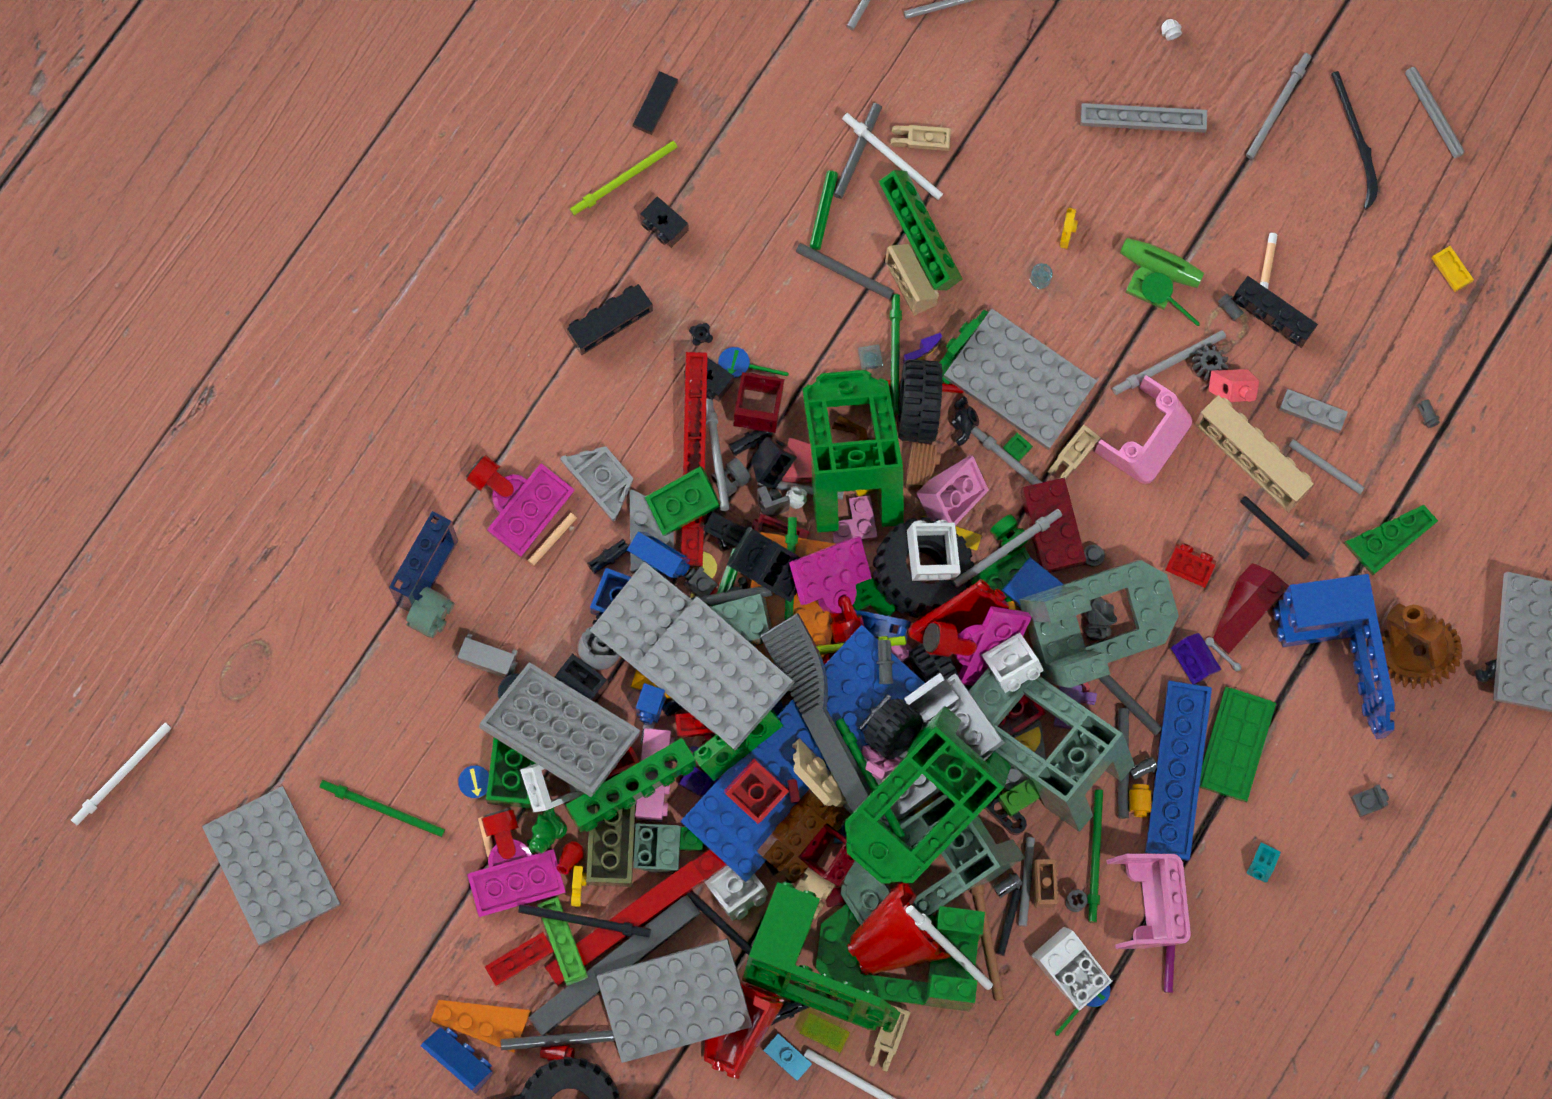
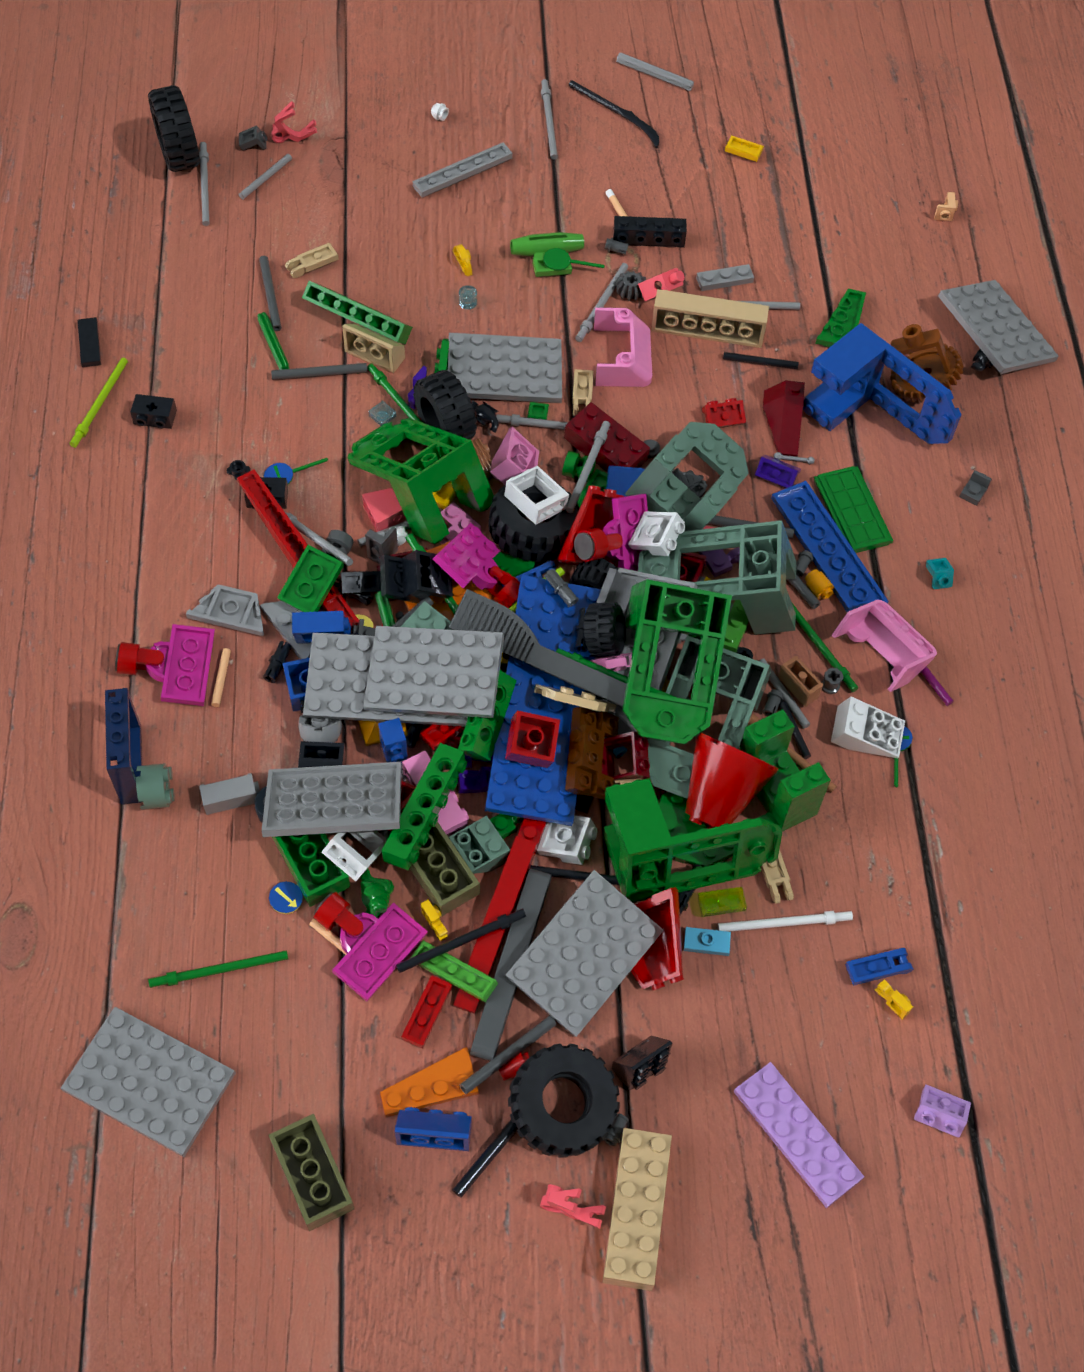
camera: 35 degrees left, 15 degrees down
(343, 1028) = (311, 1172): none -> olive brick
(570, 856) = (411, 900): red cone -> none
(609, 319) = (156, 496): black brick -> none
(748, 441) = (331, 518): black pin -> none
(758, 419) = (325, 495): dark red window -> none
(772, 461) = (360, 515): black torso -> none
(793, 791) = (565, 726): dark red tile -> none
(861, 130) = (263, 275): white bar -> none
(924, 923) = (746, 746): white bar -> none
(1428, 414) = (803, 237): dark grey pin -> none

